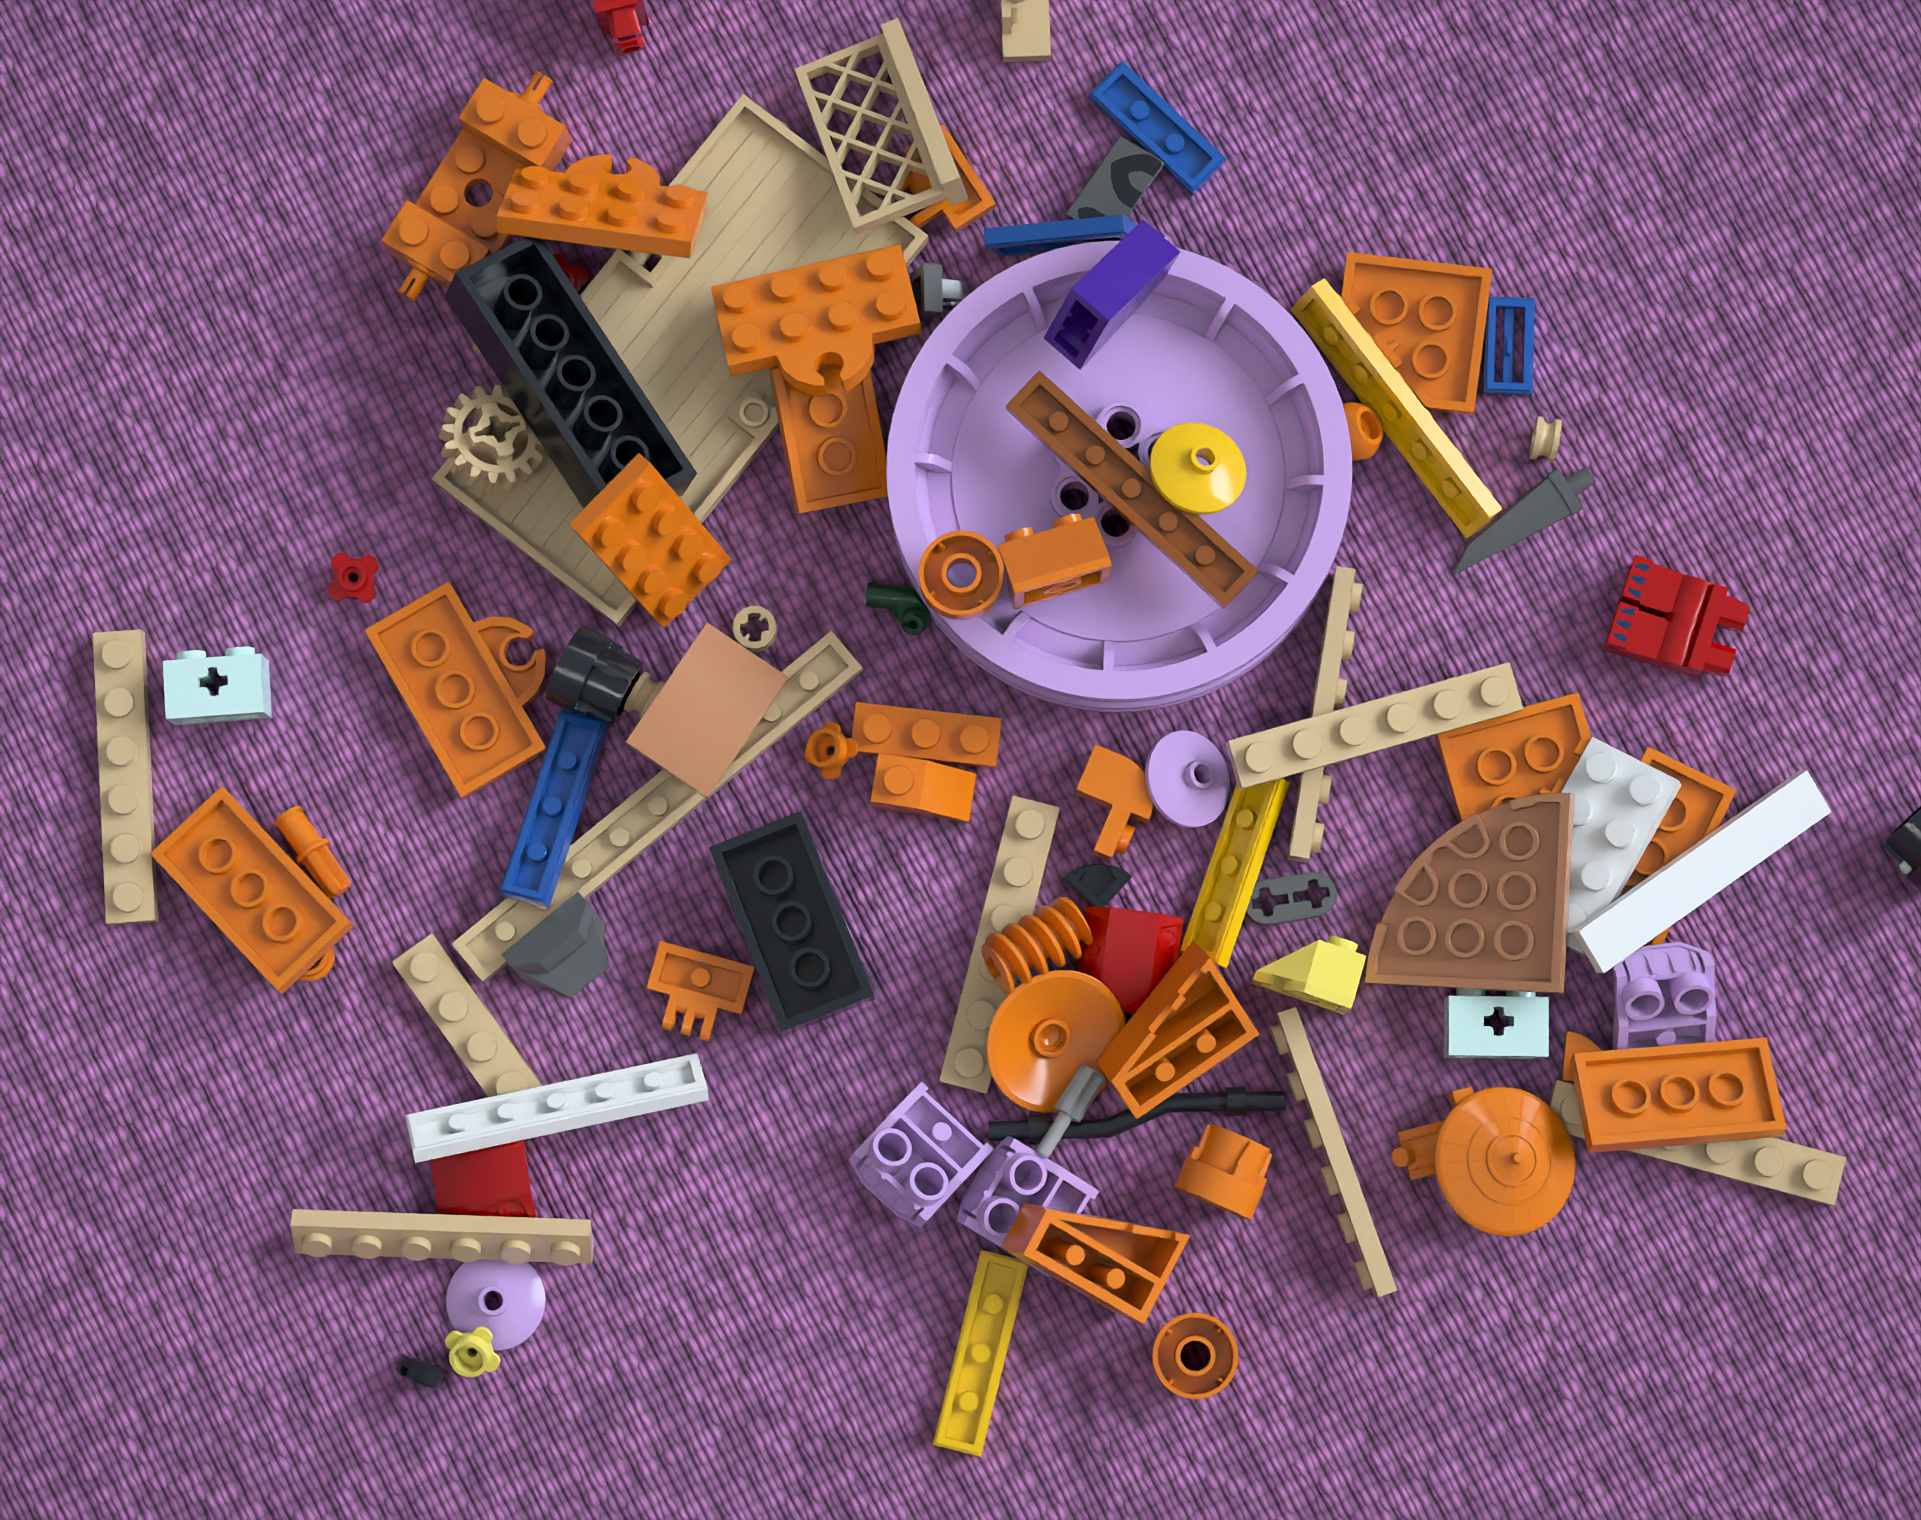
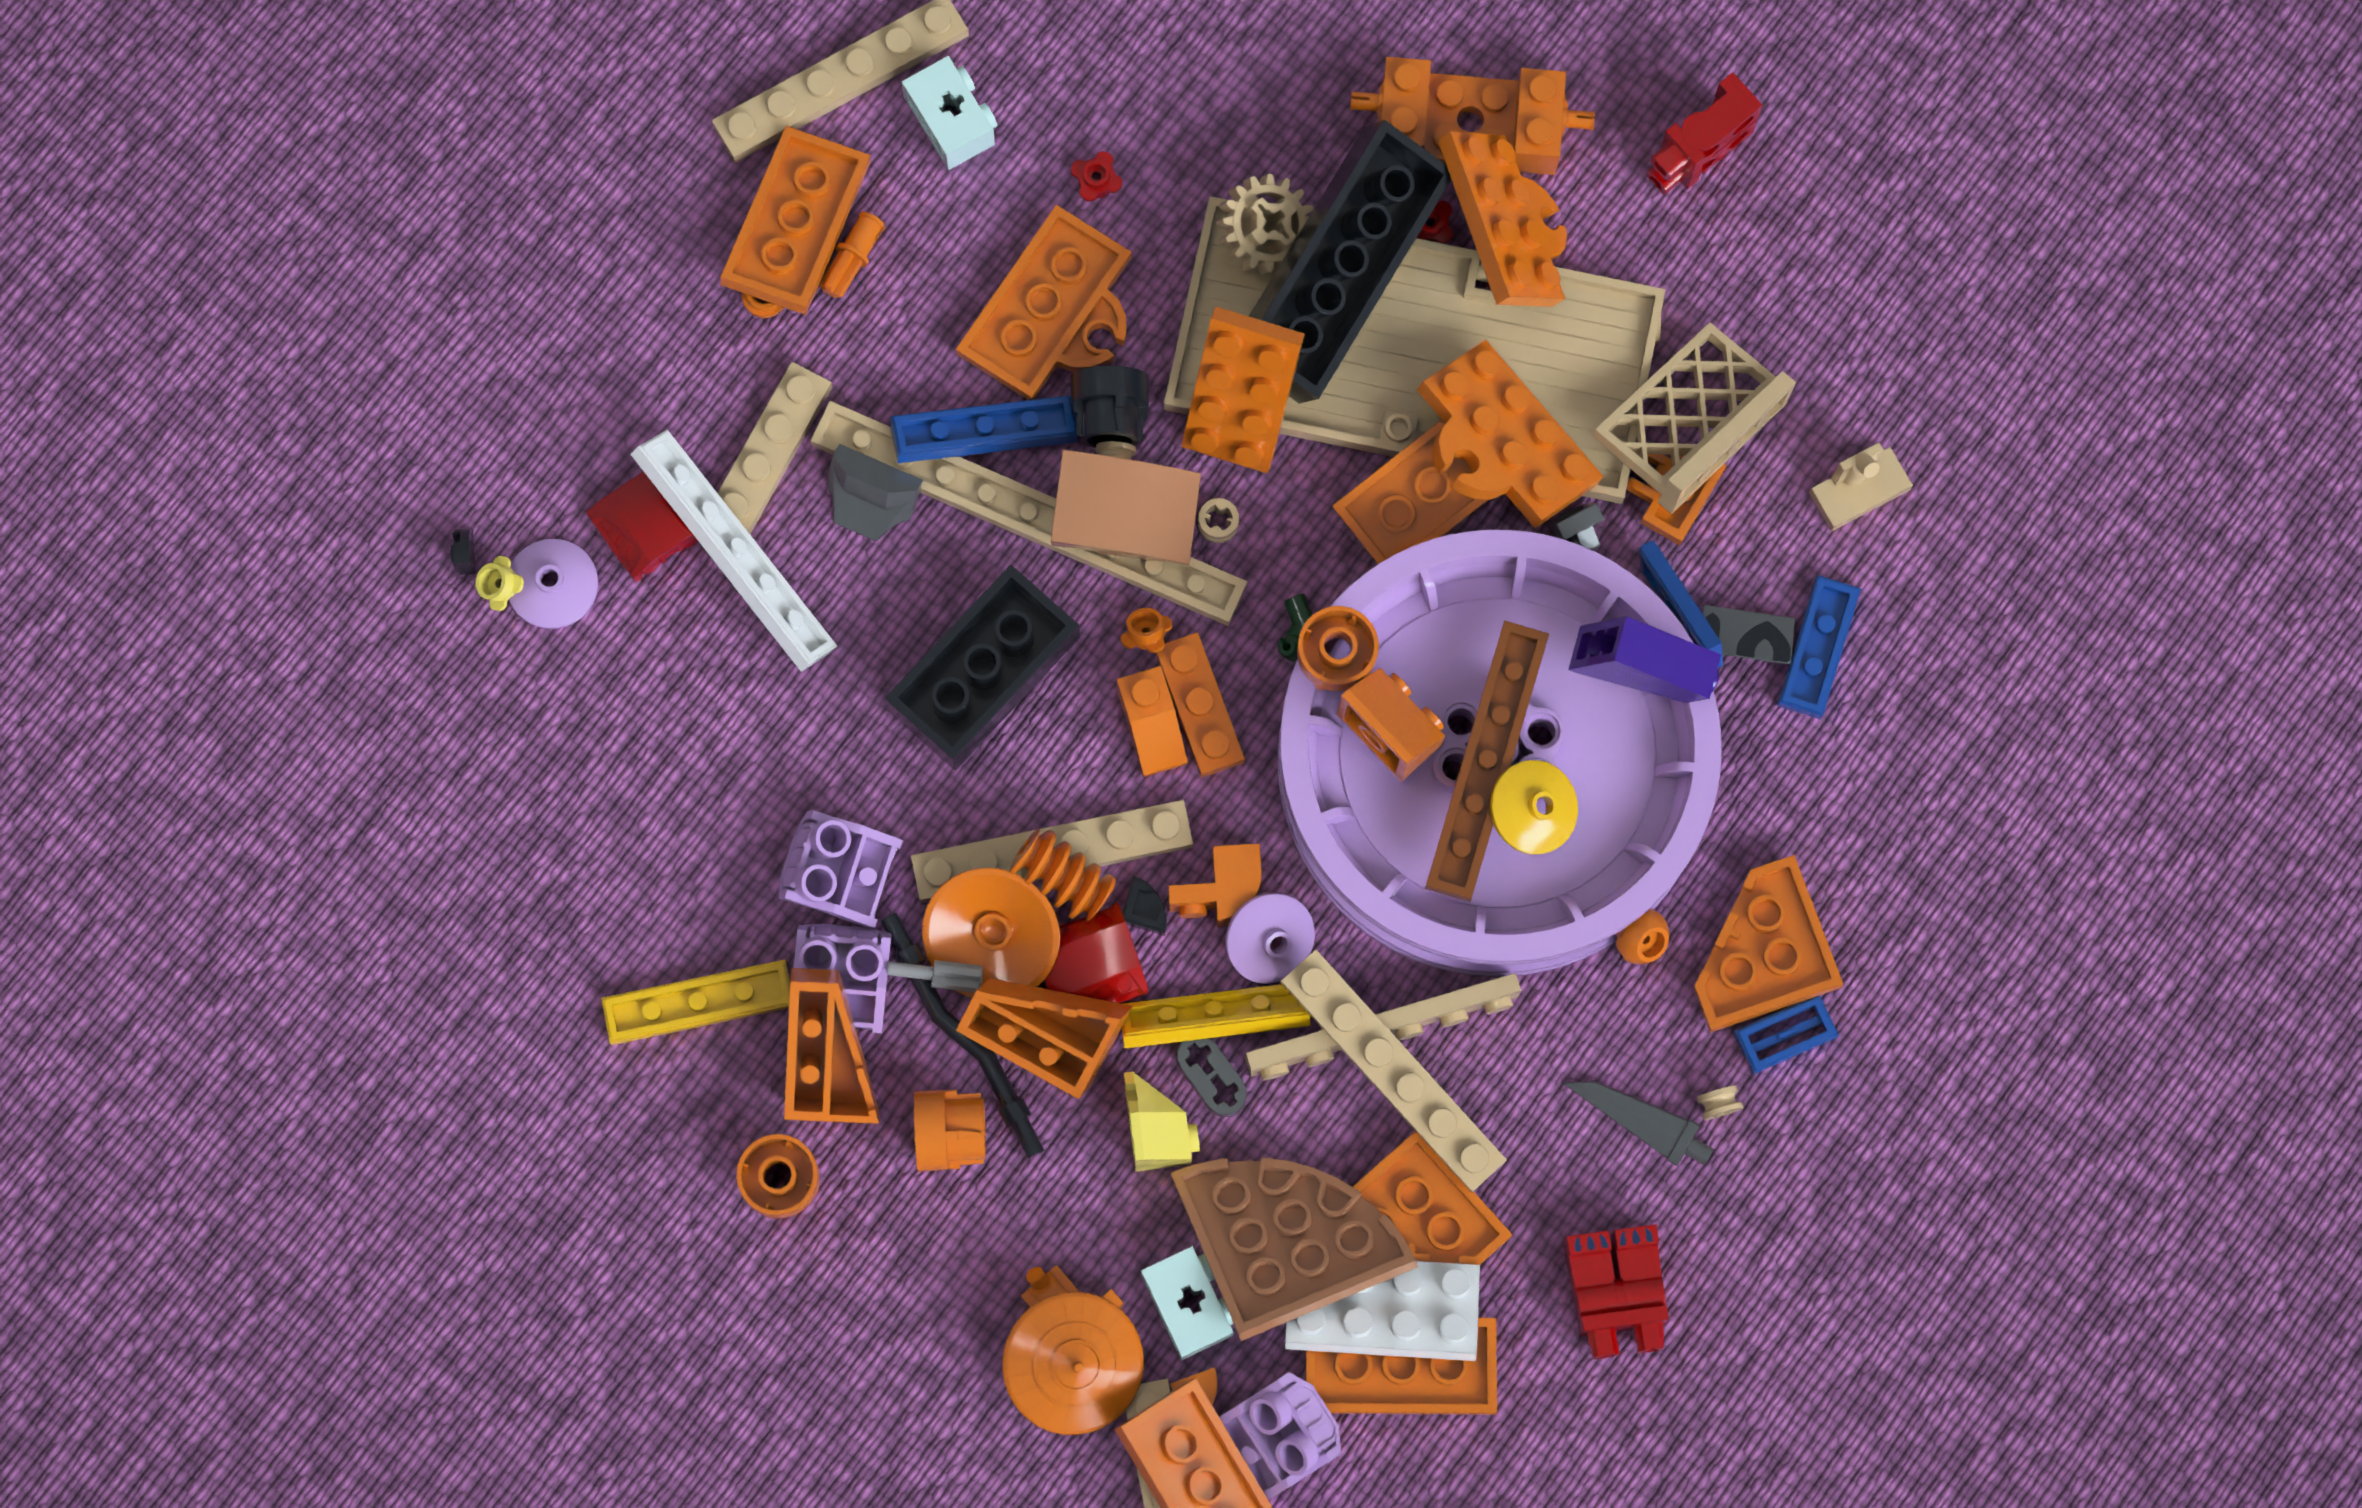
camera: 55 degrees right, 5 degrees down
(442, 1236) = (583, 512): tan plate -> none
(698, 986) = (892, 618): orange hinge -> none
(1339, 1173) = (995, 1229): tan plate -> none
(1399, 410) = (1678, 965): yellow plate -> none
(1701, 871) = (1409, 1414): white tile -> none

